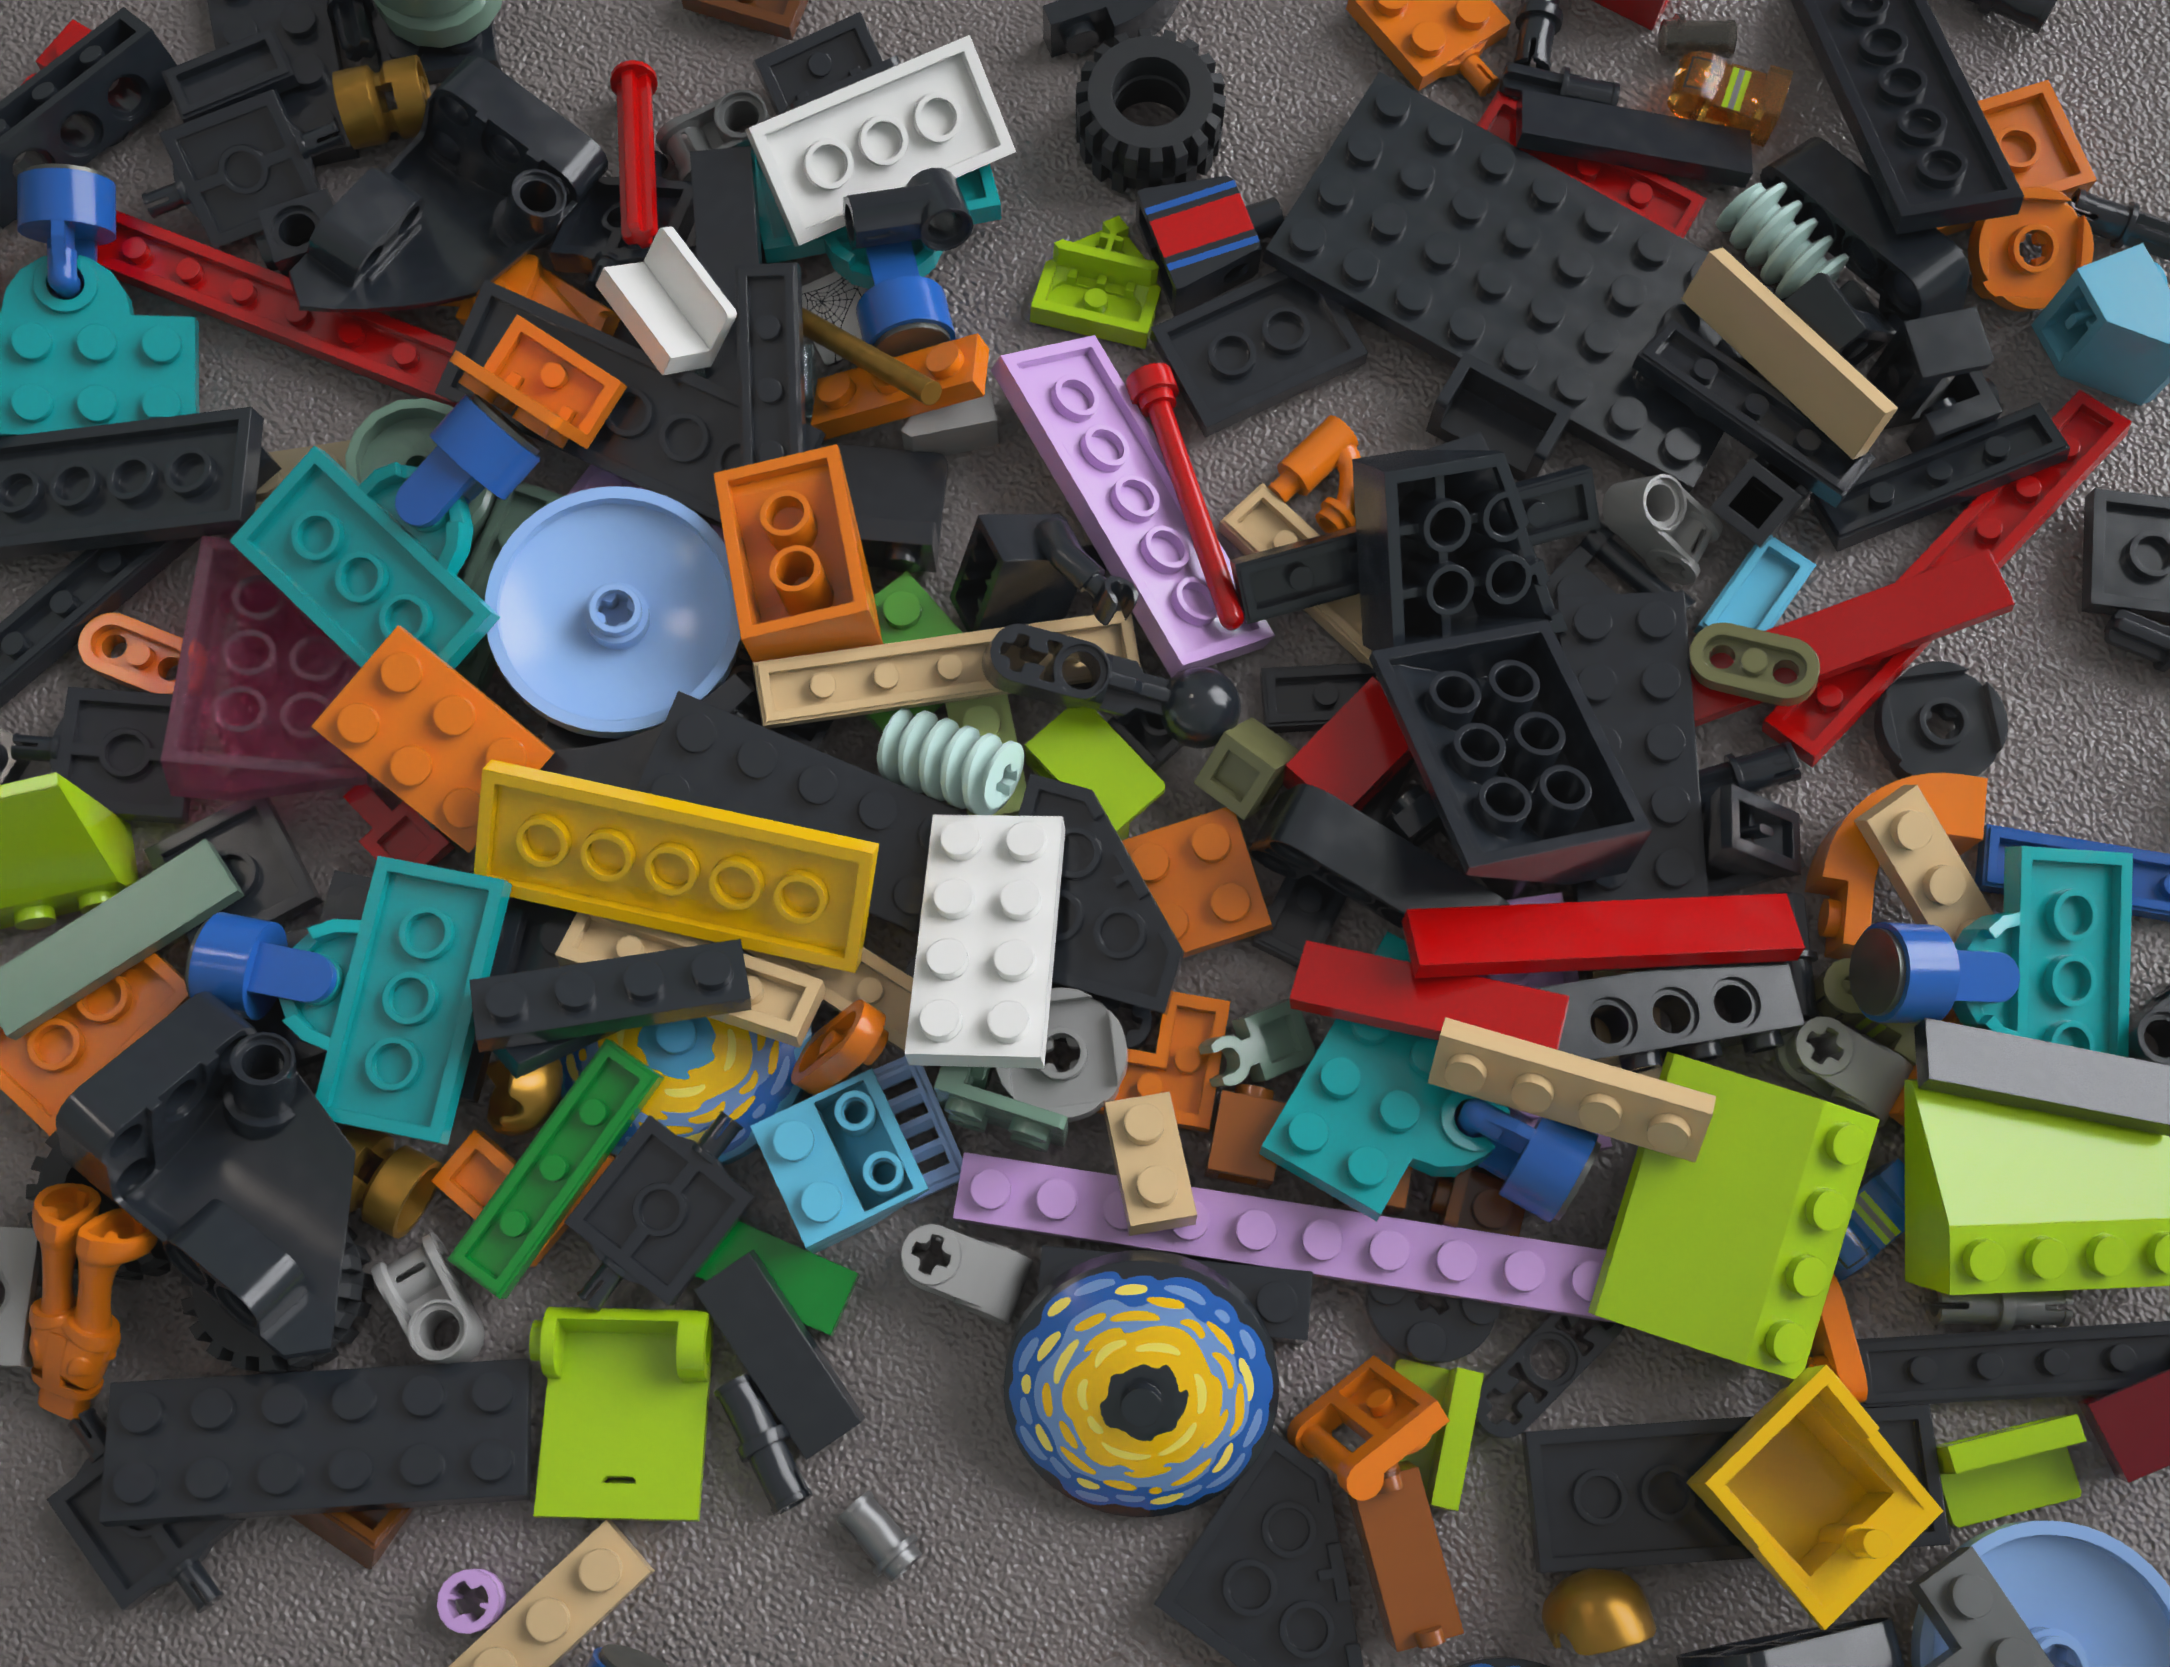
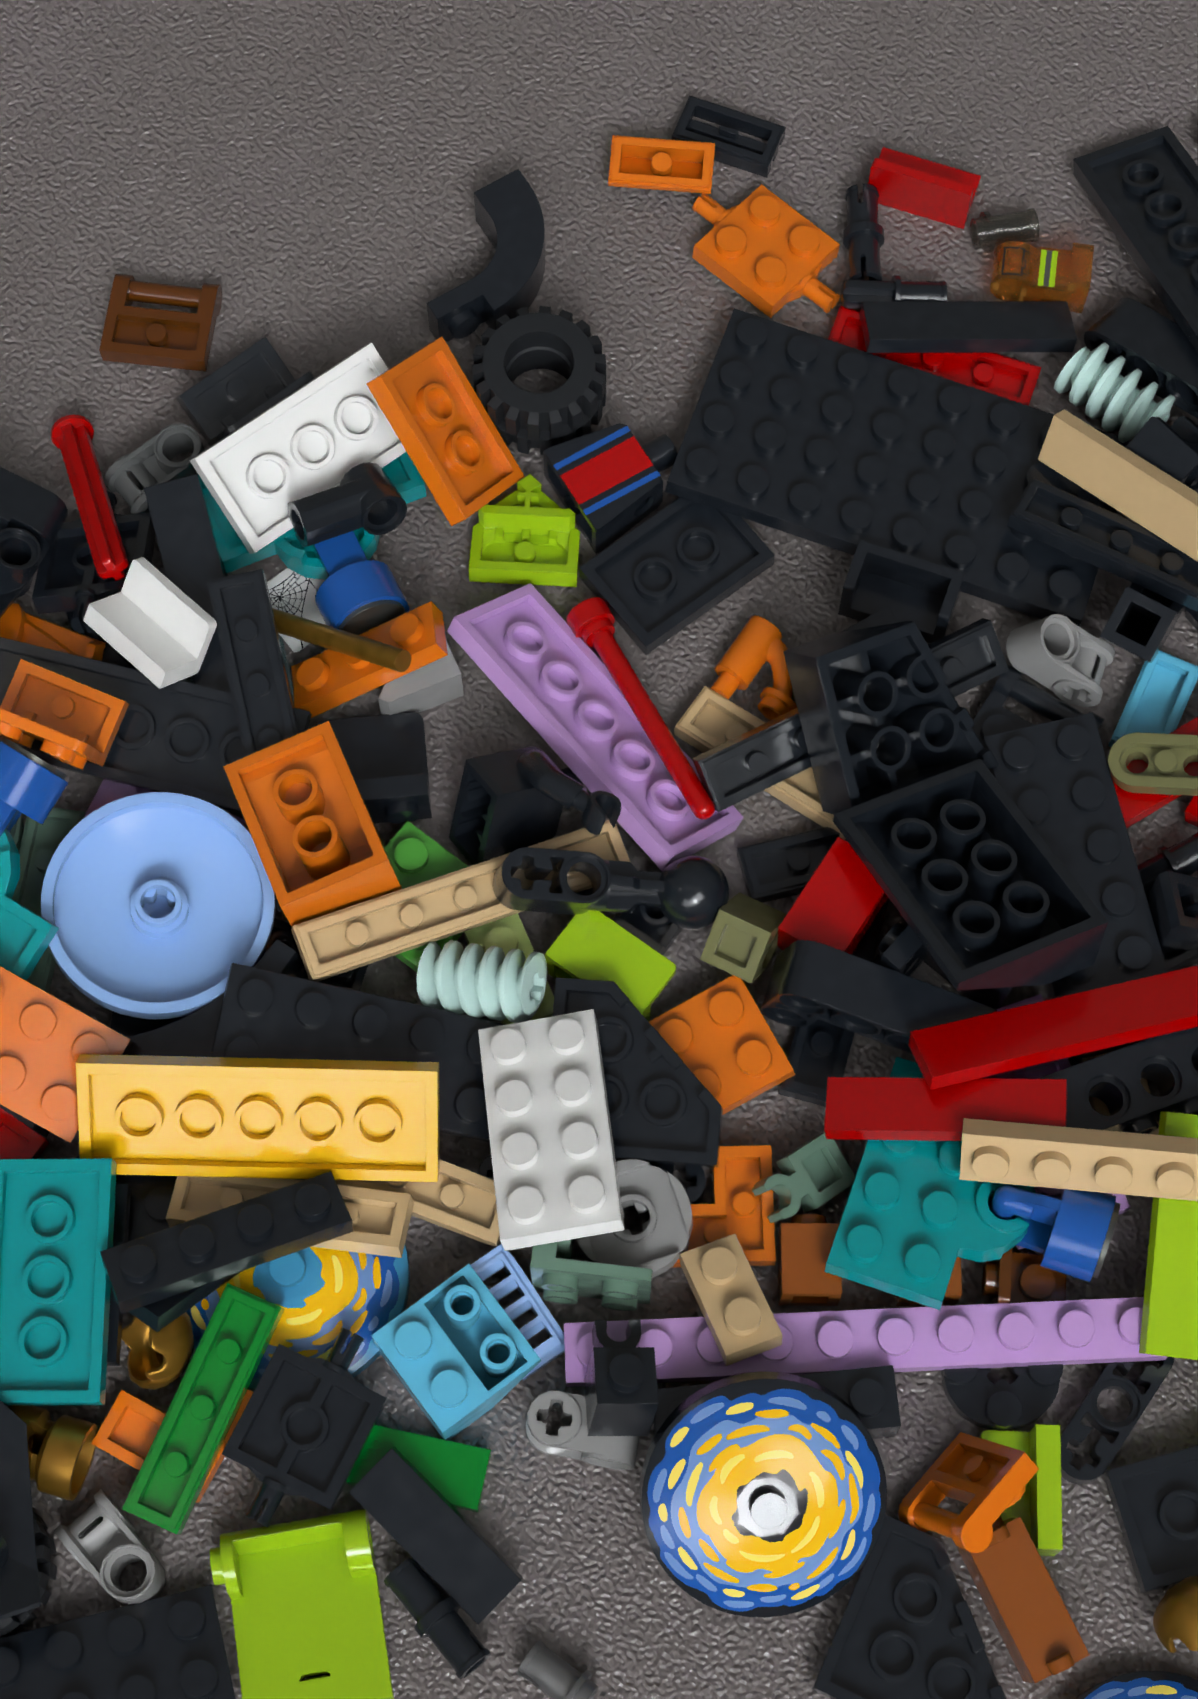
camera: 10 degrees left, 5 degrees down
(841, 1047) = (437, 1250): orange plate -> none
(1008, 1233) = (620, 1384): none -> black brick
(1033, 148) = (446, 430): none -> orange plate

